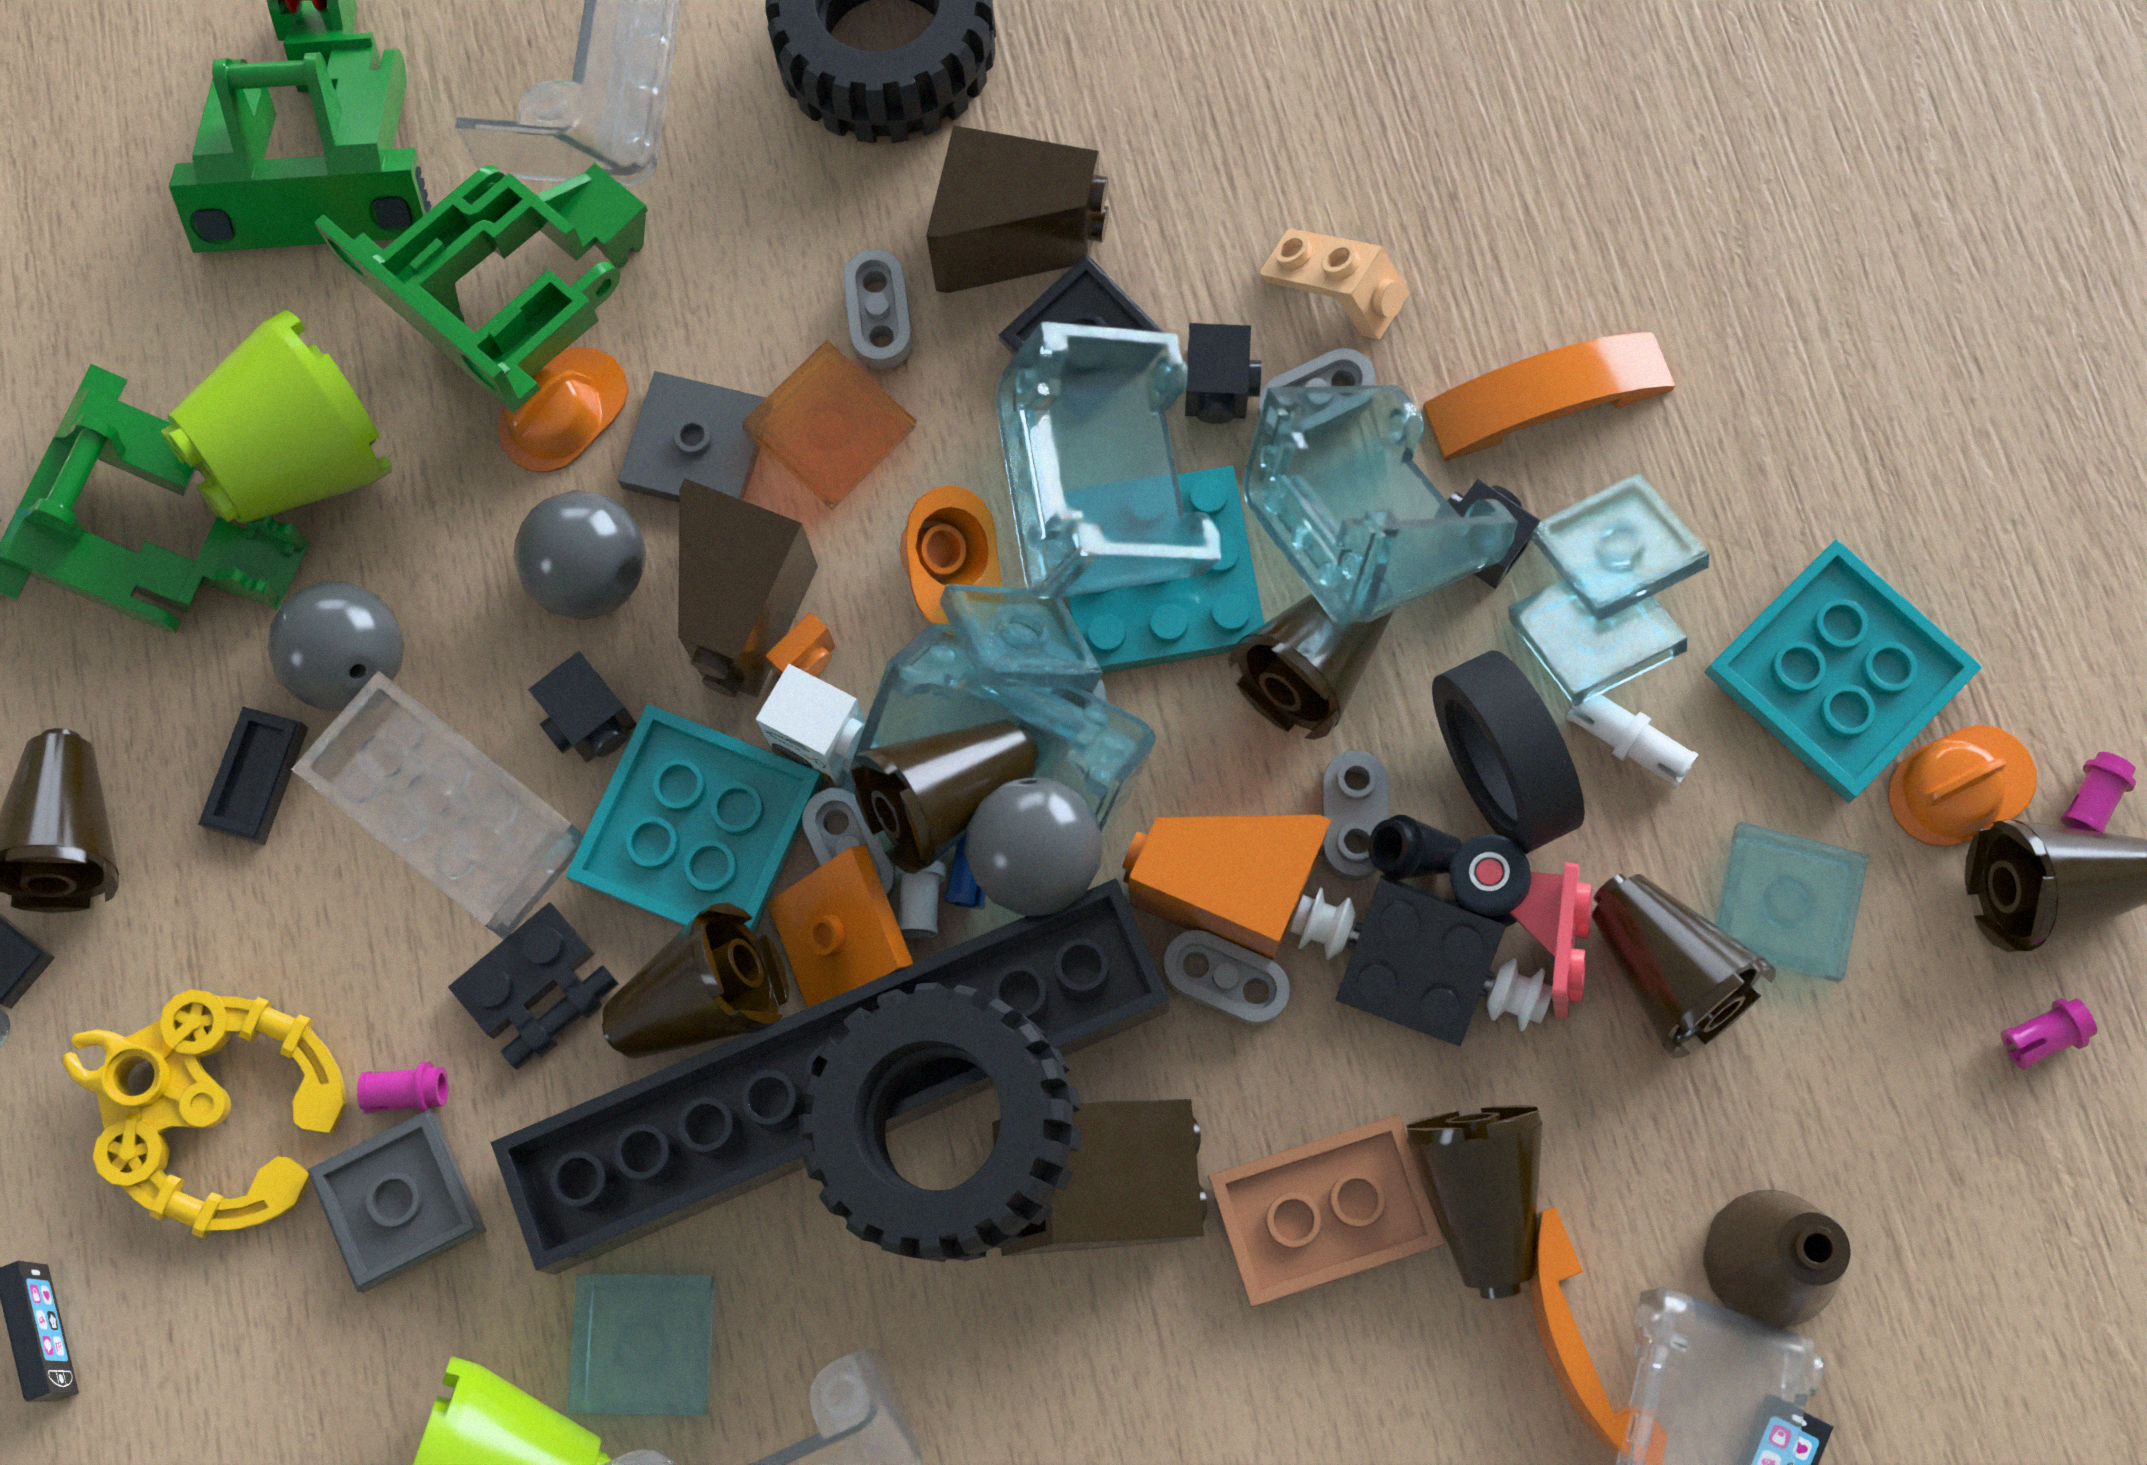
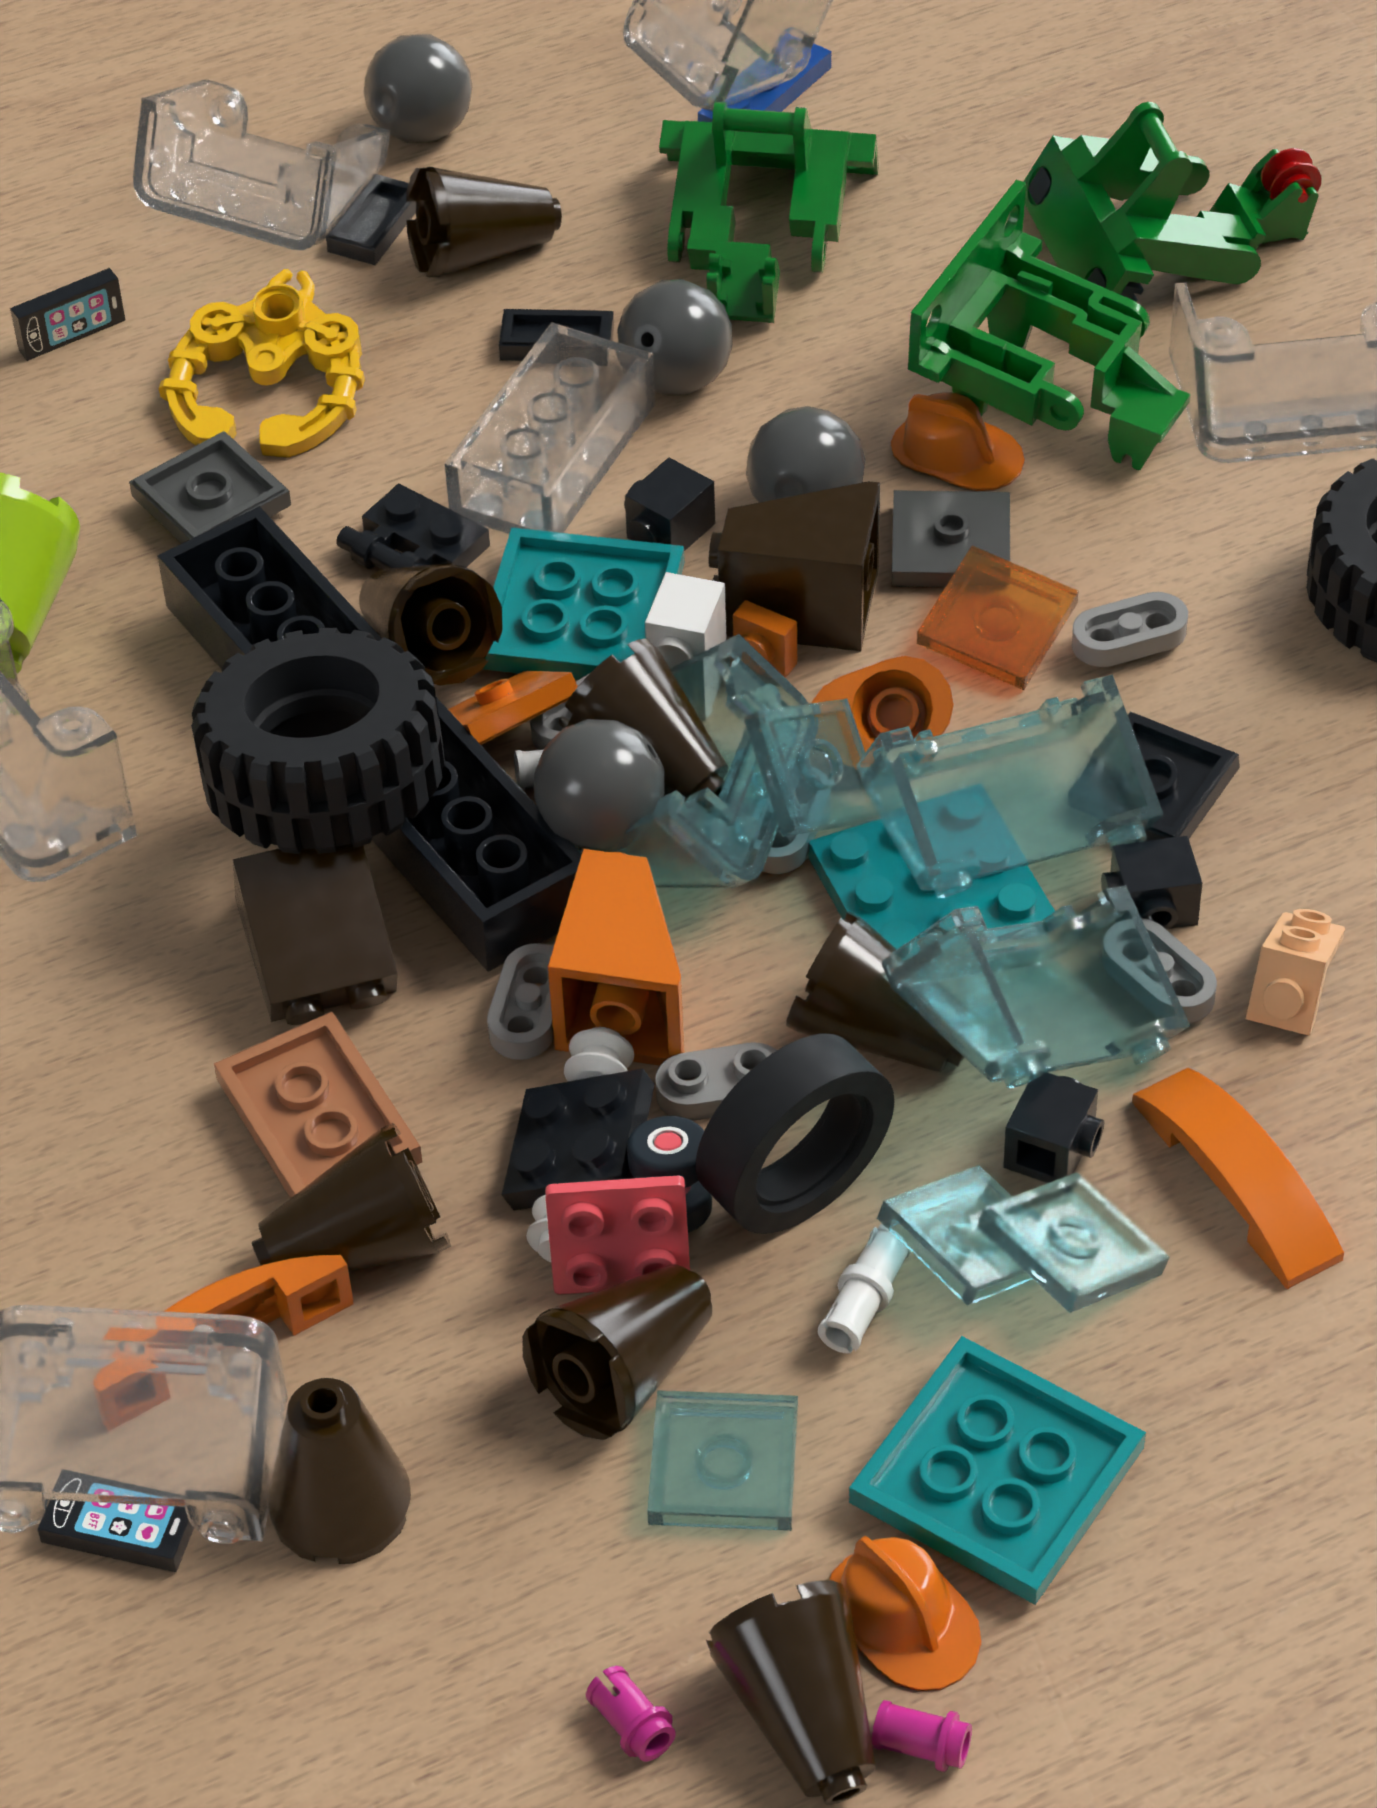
camera: 75 degrees right, 25 degrees down
(274, 427) = (850, 240): lime cone -> none
(403, 1089) = (306, 483): dark pink pin -> none
(641, 1344) = (118, 668): clear light blue tile -> none
(1013, 209) = (1252, 679): dark brown slope -> none
(1410, 848) = (686, 1094): black cone -> none

